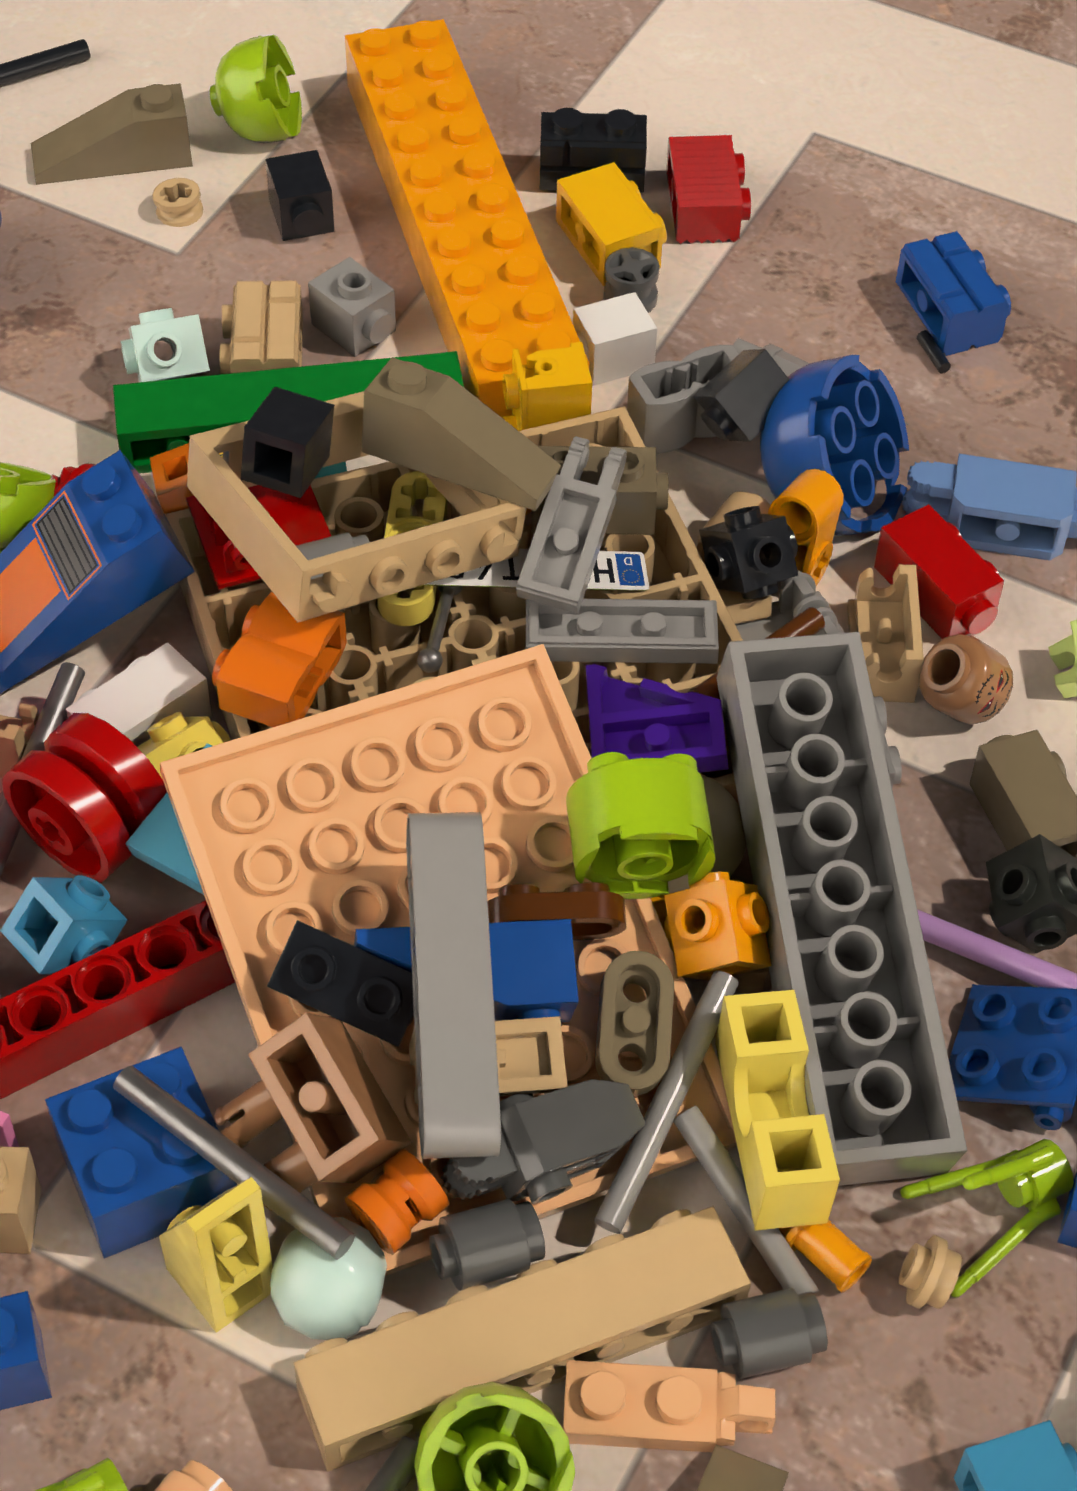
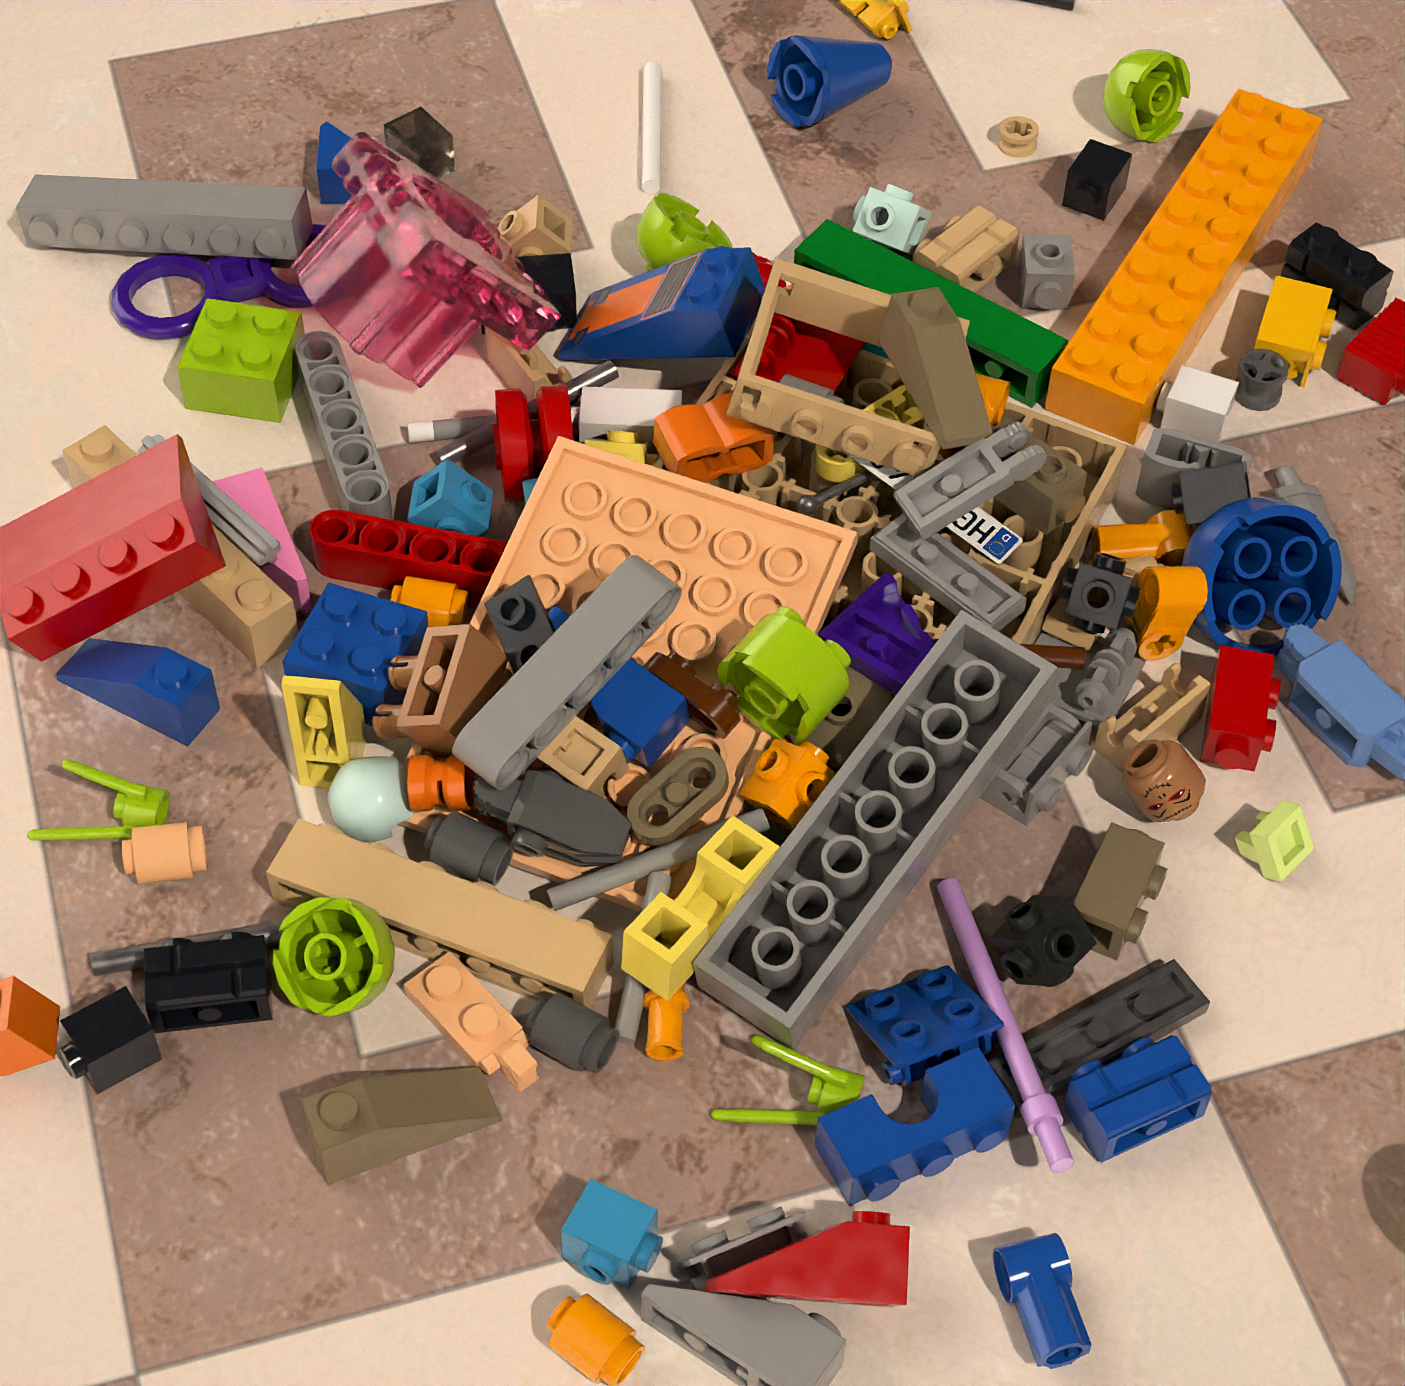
camera: 45 degrees right, 0 degrees up
(122, 136) = (1027, 71): dark tan slope -> none
(149, 1033) = (440, 599): none -> light orange brick
(234, 1161) = (374, 687): flat silver bar -> none
(287, 442) = (821, 297): black brick -> none
(548, 388) = (1090, 398): yellow hinge -> none
(713, 477) = (1162, 536): none -> light orange piece
(930, 1273) = (704, 1086): tan plate -> none

